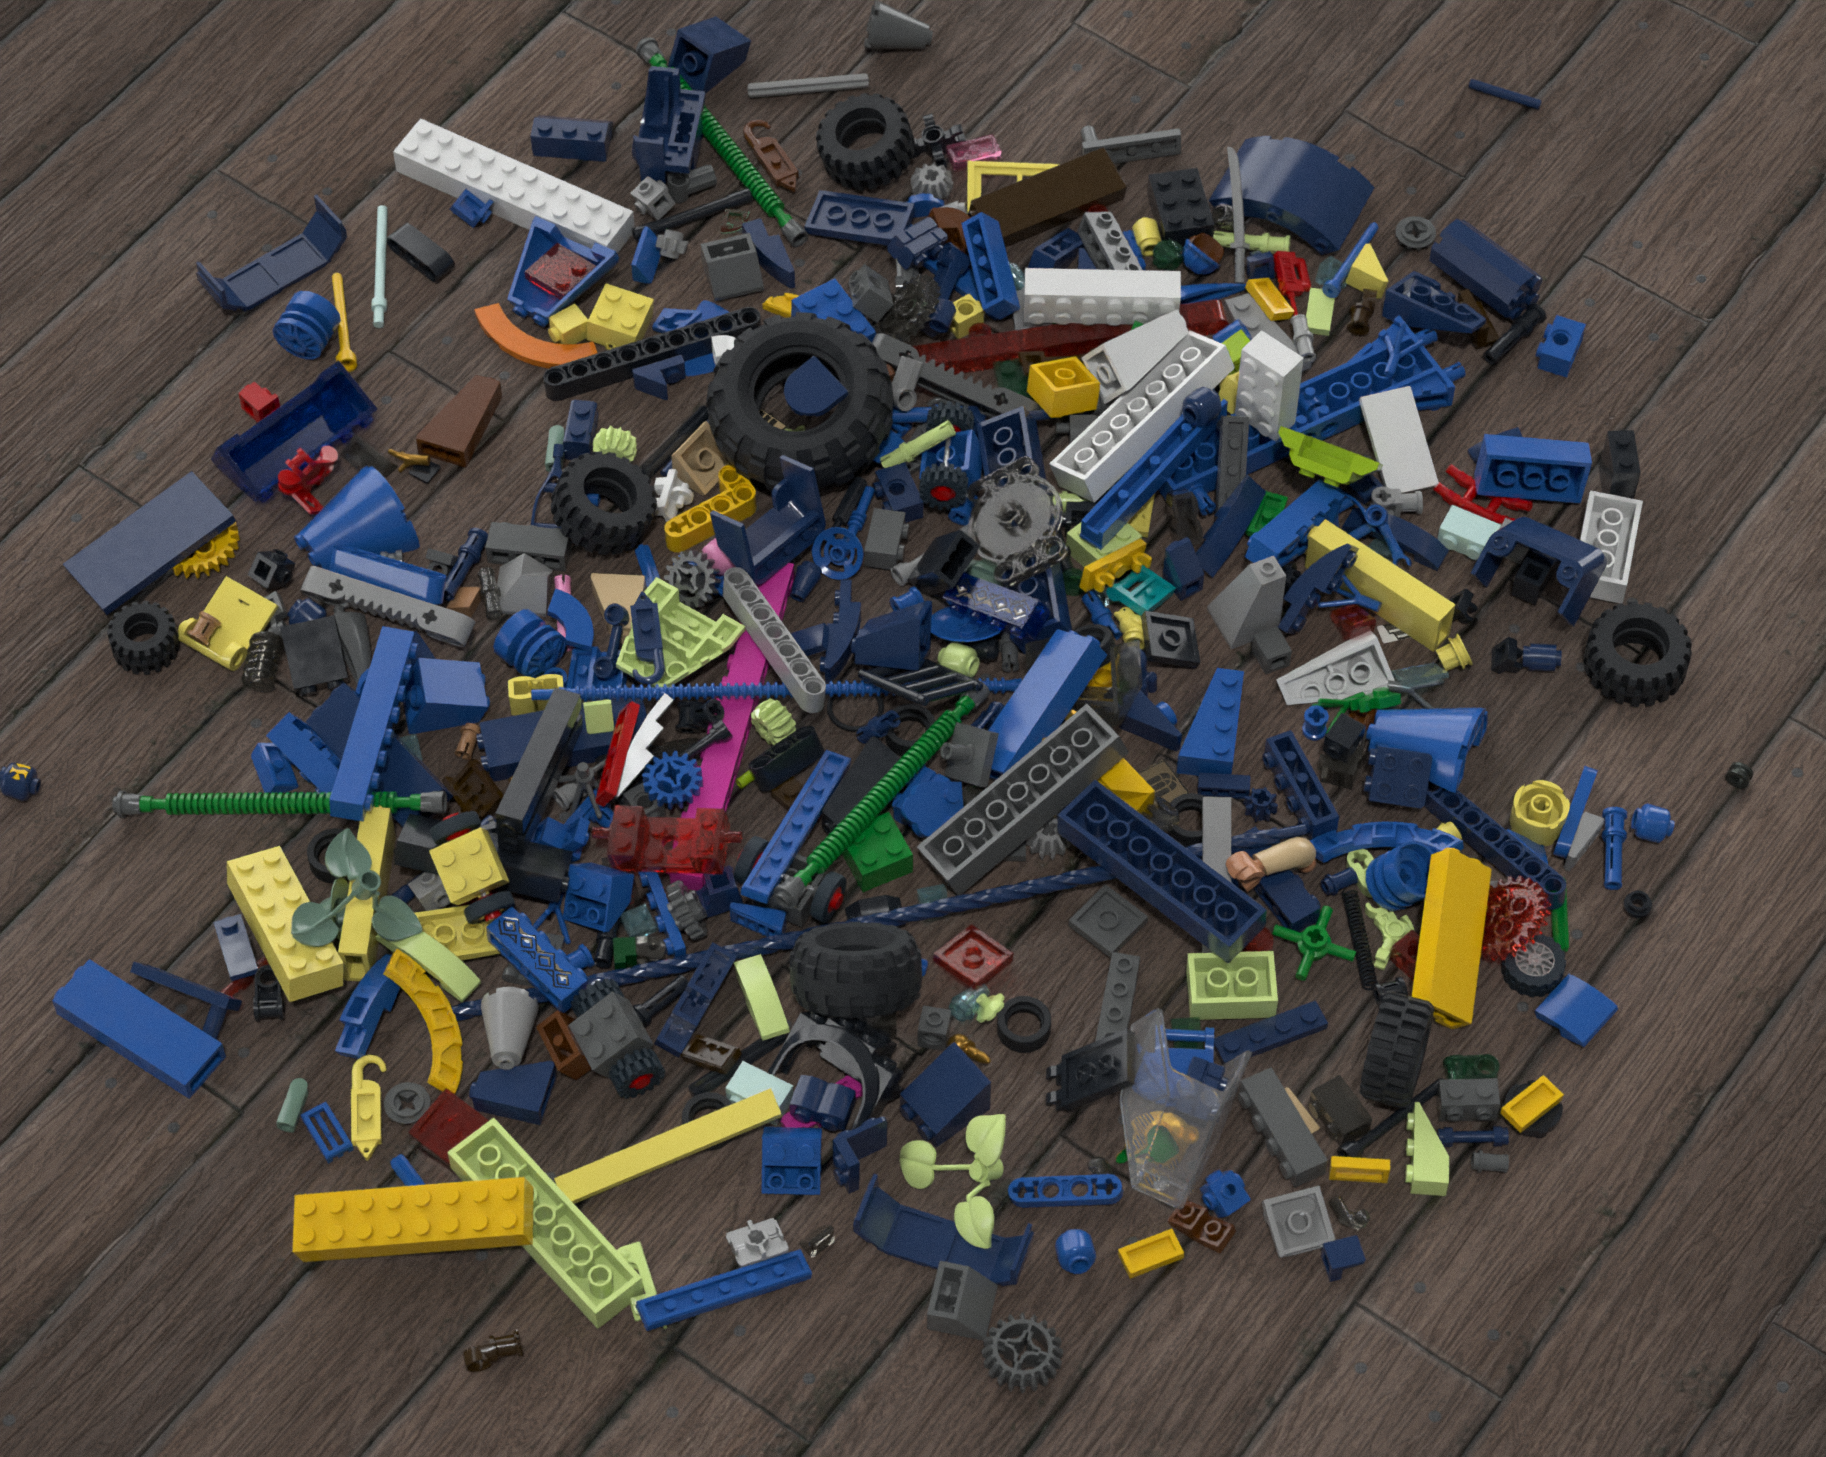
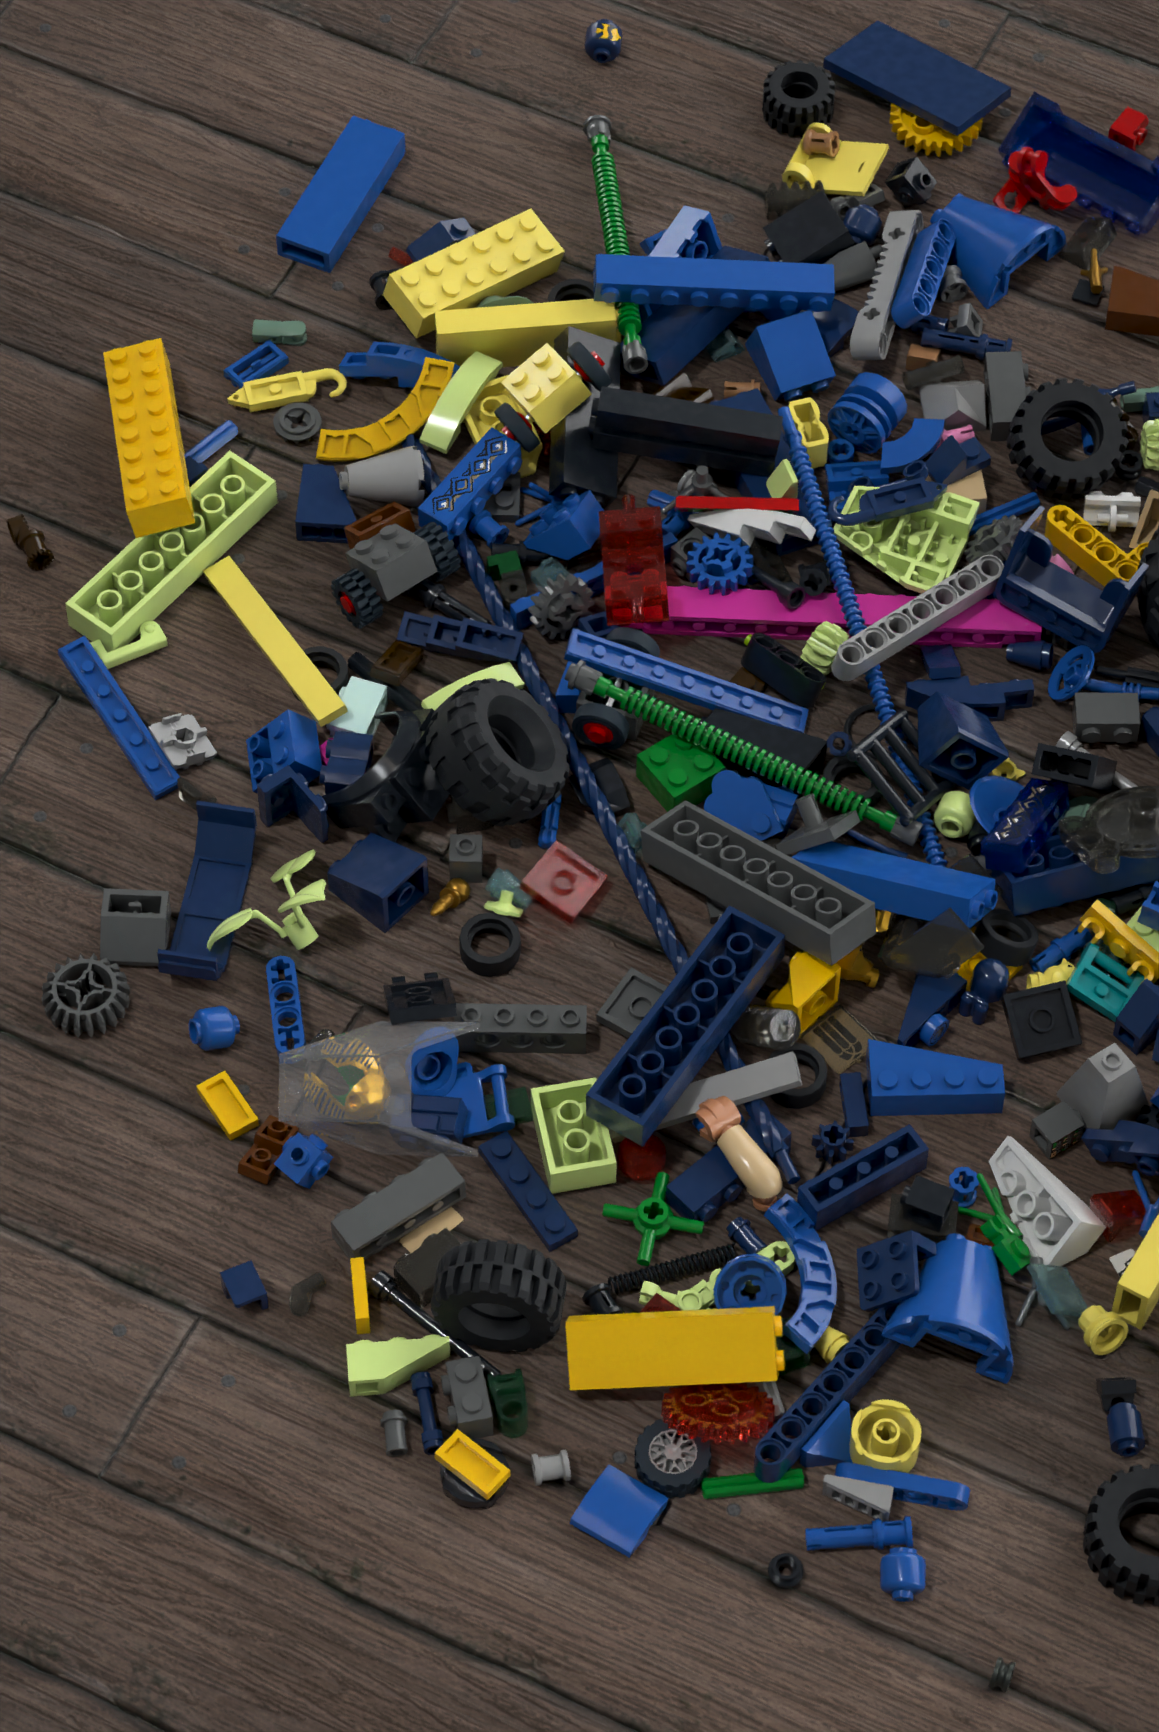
camera: 80 degrees right, 0 degrees up
(219, 1001) = (388, 221): dark blue piece -> none
(350, 858) = (486, 351): sand green plant -> none
(446, 1124) = (279, 457): clear red plate -> none
(564, 837) = (633, 481): blue brick -> none
(604, 585) = (956, 460): none -> dark blue slope
(908, 599) = (1023, 752): blue bush -> none
(1298, 1221) = (281, 1237): light grey slope -> none
(1534, 1051) = (550, 1467): none -> light grey bush

